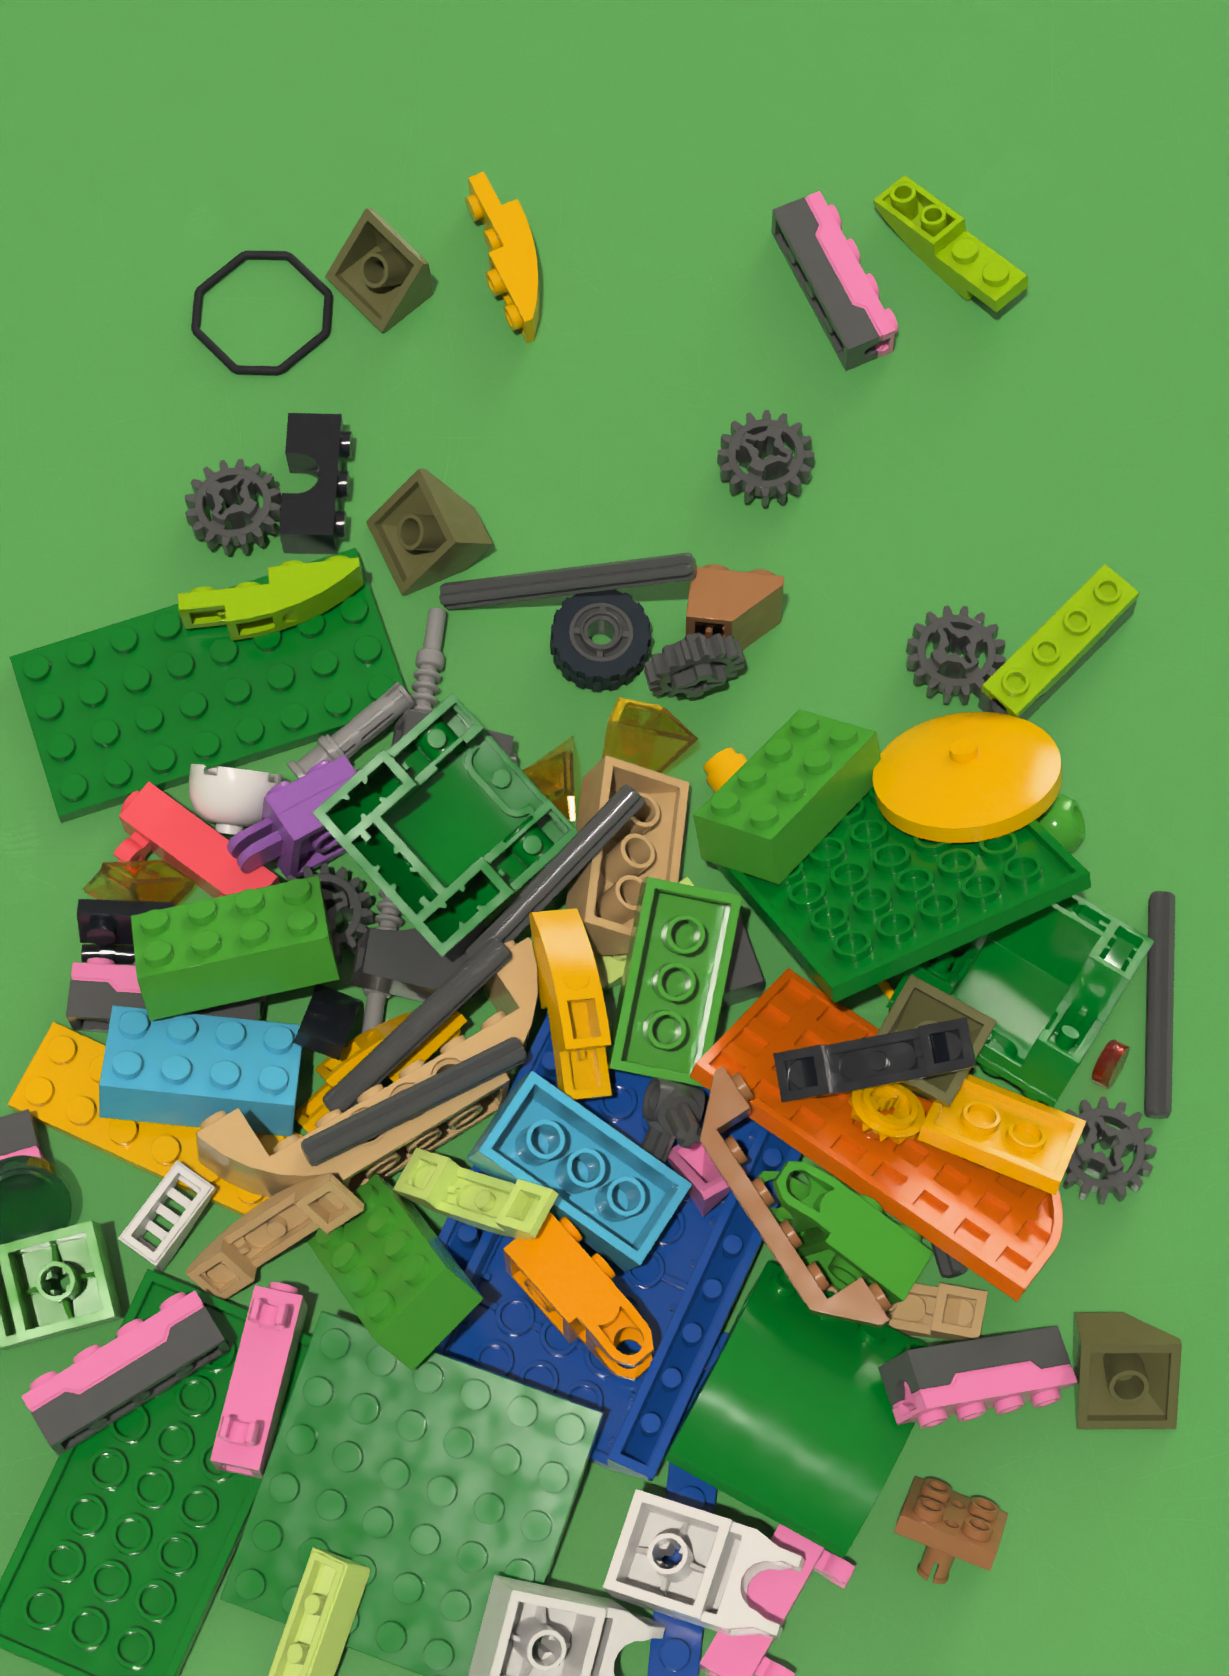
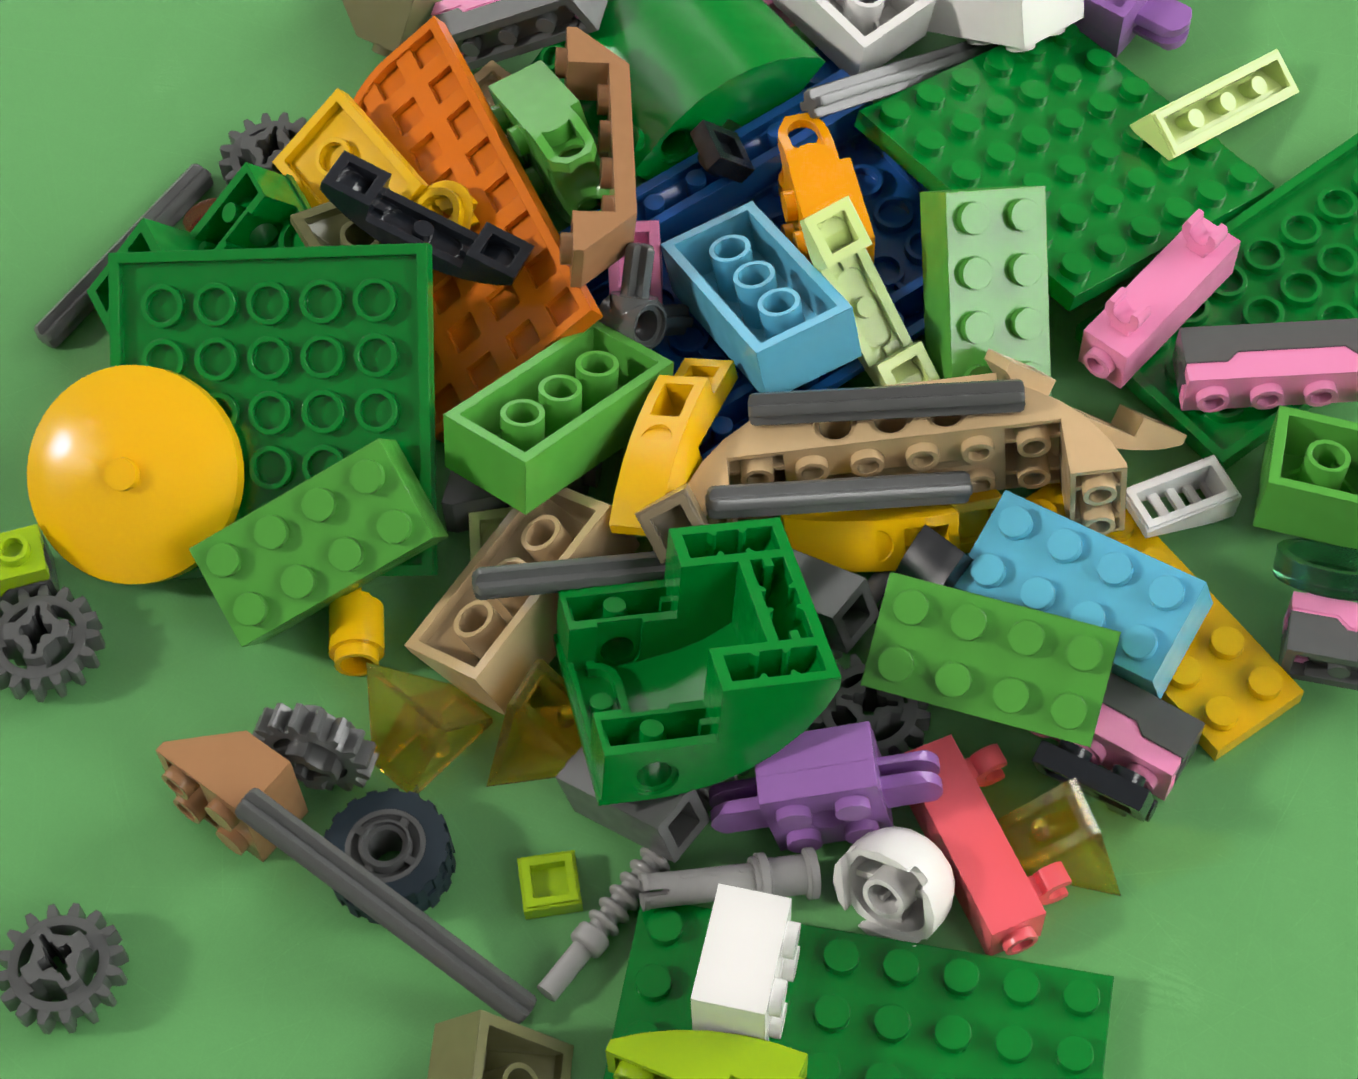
camera: 150 degrees left, 10 degrees down
(294, 651) = (746, 964): none -> white brick
(482, 686) = (549, 884): none -> lime tile
(519, 921) = (672, 510): none -> dark tan slope
(599, 1472) = (885, 80): none -> axle
(695, 1305) = (721, 152): none -> black plate

